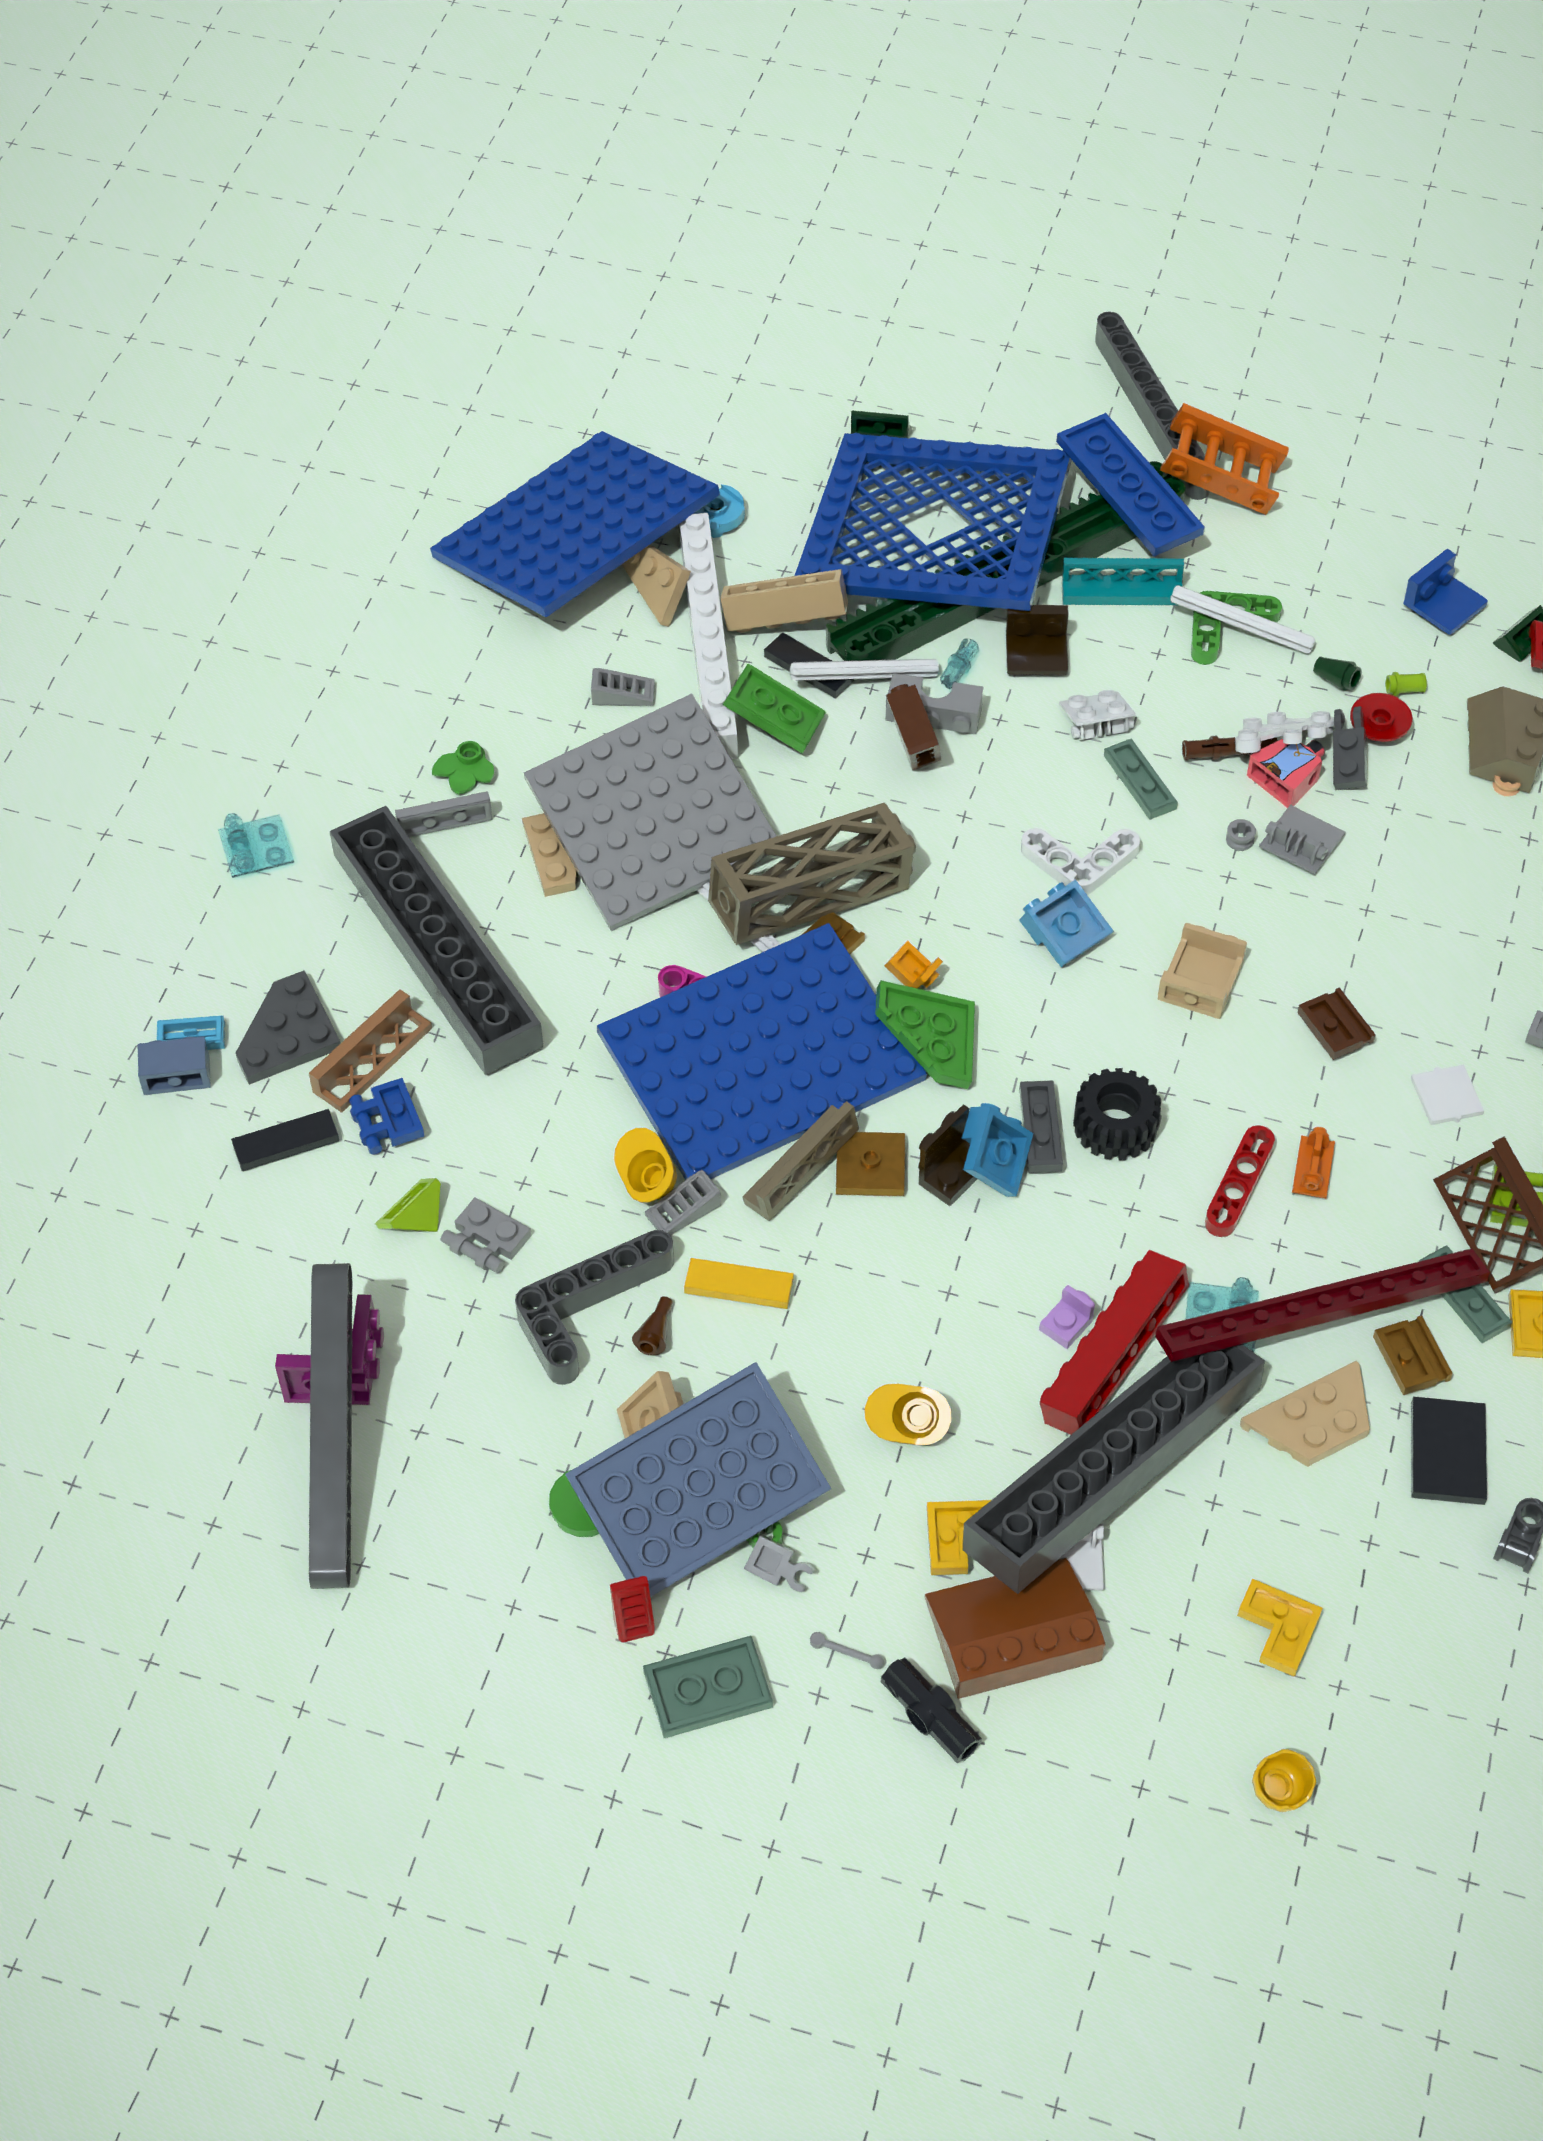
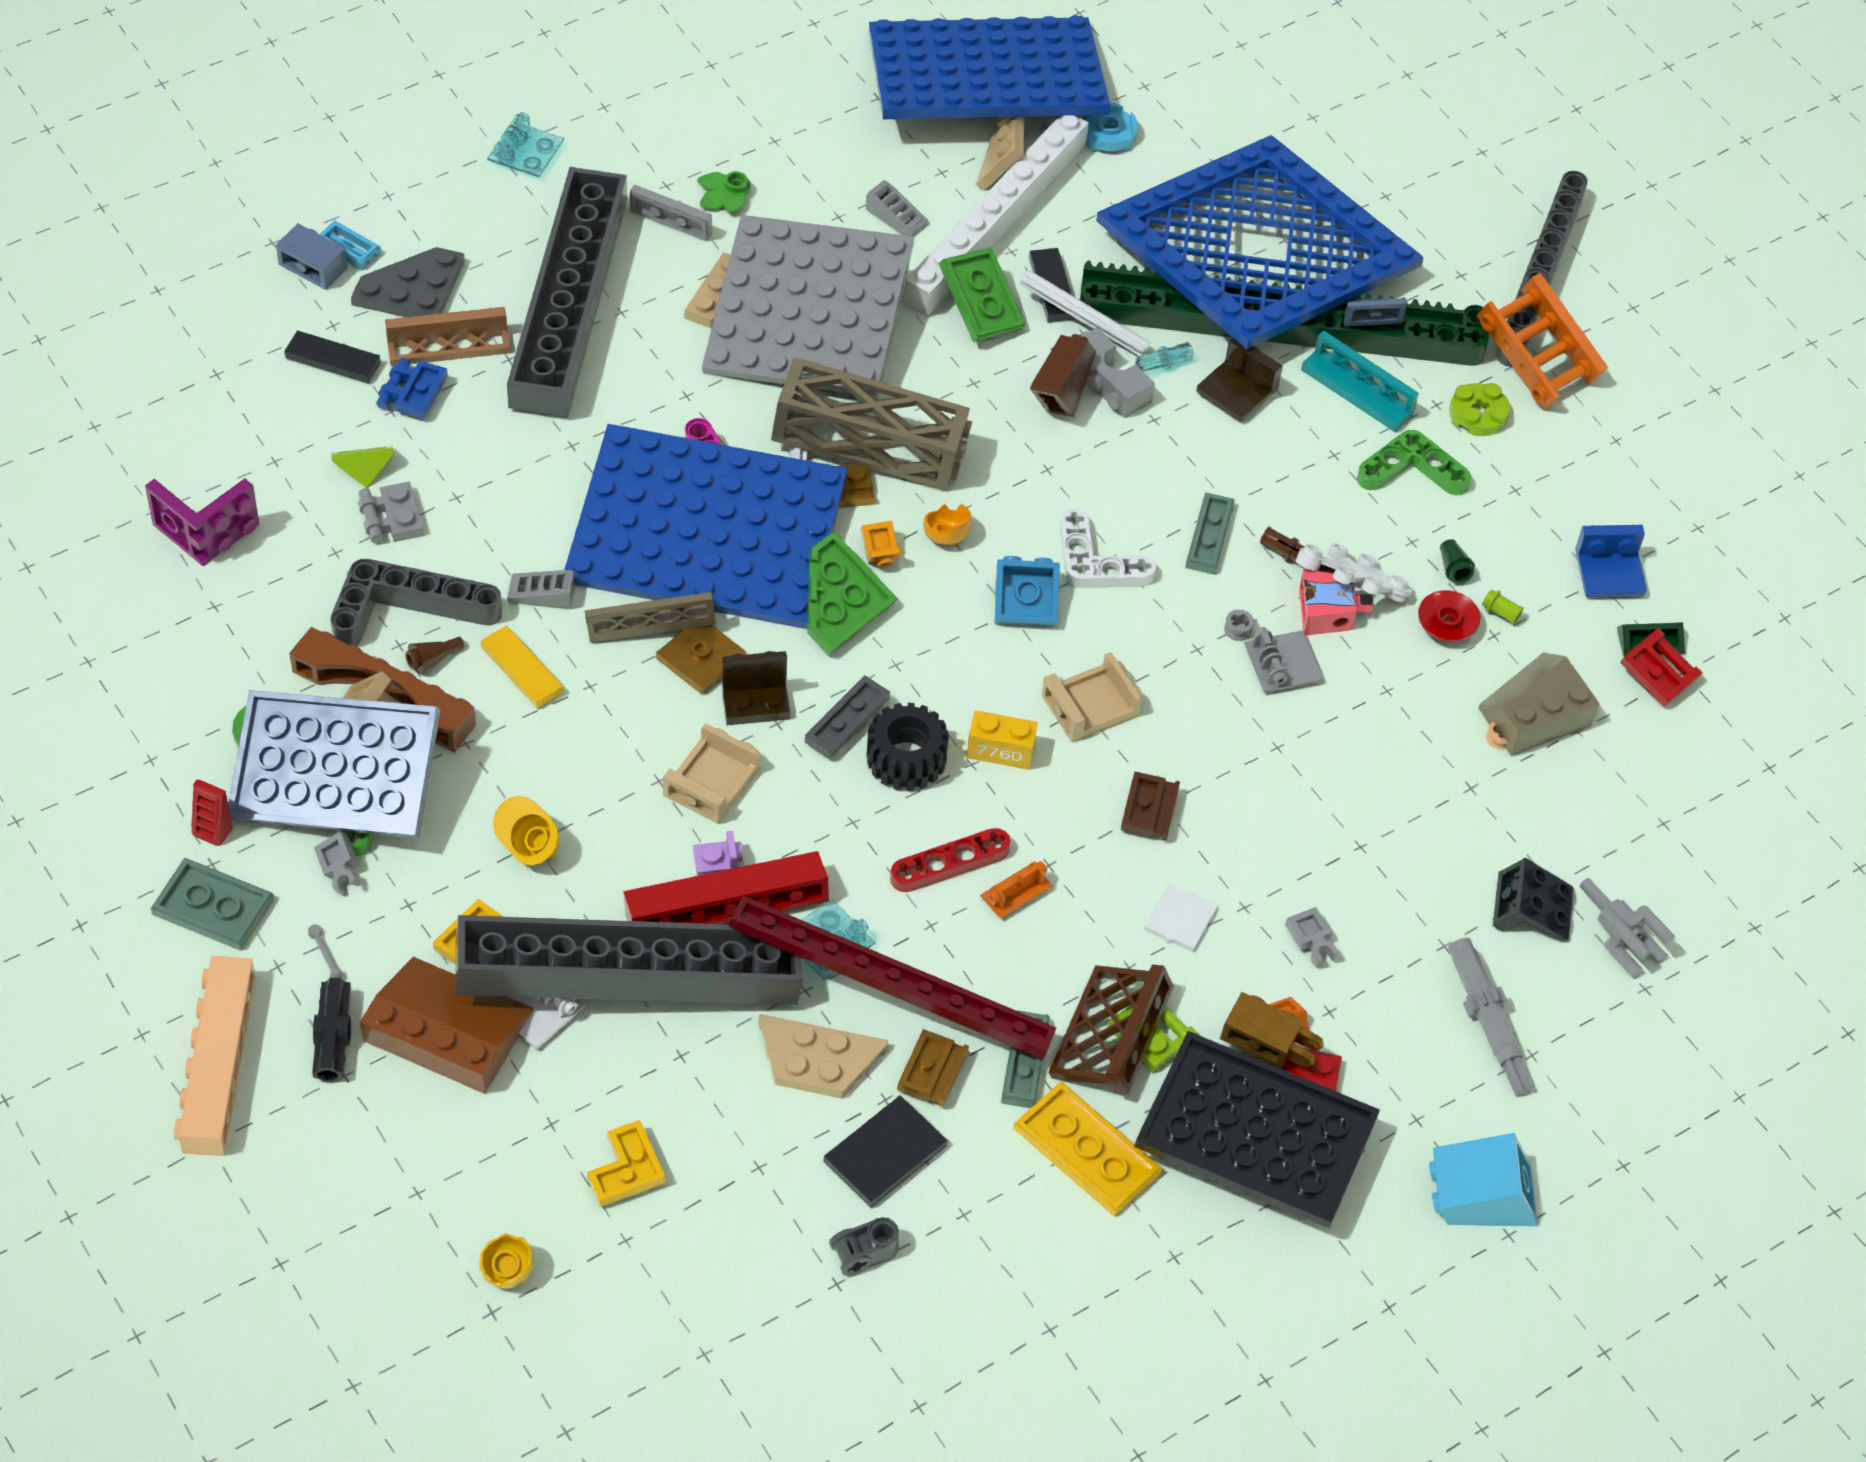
camera: 35 degrees right, 0 degrees up
(330, 1426) = (140, 548): dark grey beam -> none
(579, 1399) = (330, 661): none -> dark orange arch
(644, 1165) = (537, 542): yellow piece -> none
(784, 601) = (1074, 222): tan brick -> none
(863, 1811) = (216, 1056): none -> light nougat brick
(879, 424) = (1305, 146): dark green slope -> none
(948, 913) = (948, 525): none -> light orange hair
(990, 1253) = (712, 774): none -> tan panel
(996, 1148) = (786, 703): dark azure plate -> none
(1087, 515) = (1374, 312): none -> sand blue slope
(1090, 711) = (1233, 460): white hinge -> none
(1130, 484) = (1437, 309): blue plate -> none
(1178, 1054) = (1002, 739): none -> yellow brick
(1229, 532) = (1479, 395): none -> lime plate
(1242, 619) = (1421, 471): white axle -> none
(1349, 752) = (1394, 621): dark grey hinge -> none

